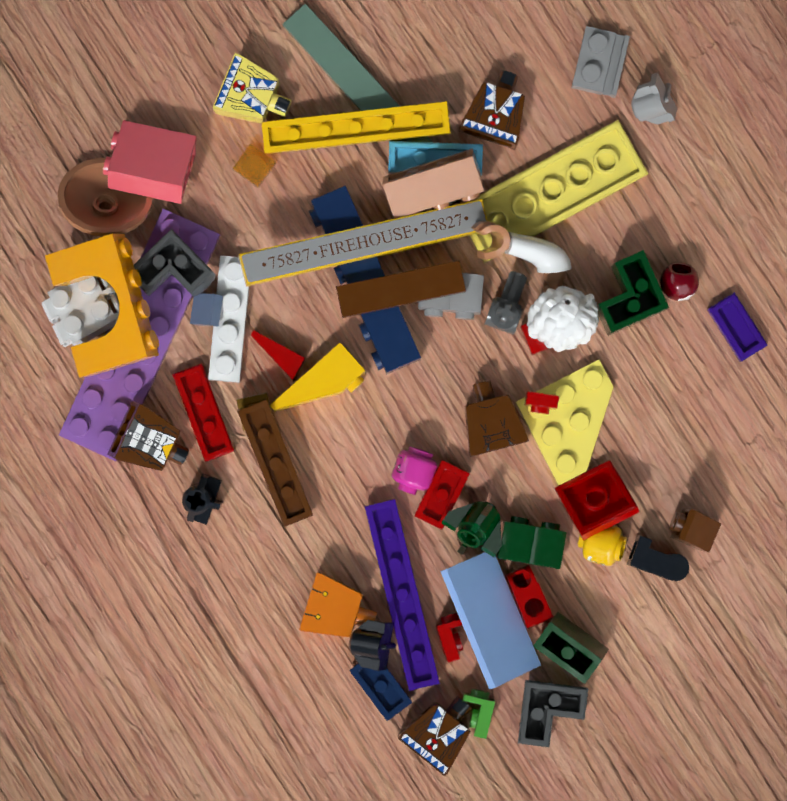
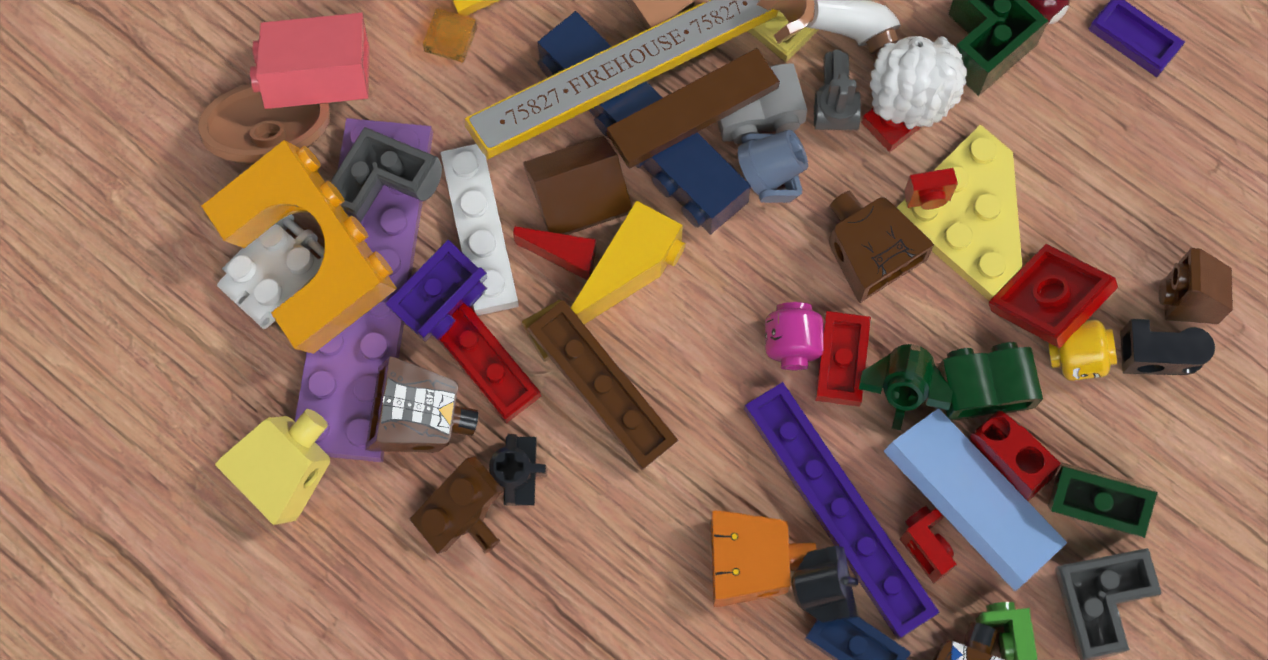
camera: 15 degrees left, 15 degrees down
(47, 447) = (278, 465): none -> light yellow torso
(156, 514) = (459, 508): none -> reddish brown plate
(187, 363) = (438, 291): none -> dark purple bracket
(206, 309) = (443, 221): sand blue tile -> none
(306, 310) = (579, 186): none -> reddish brown slope
(443, 343) = (773, 161): none -> sand blue piece

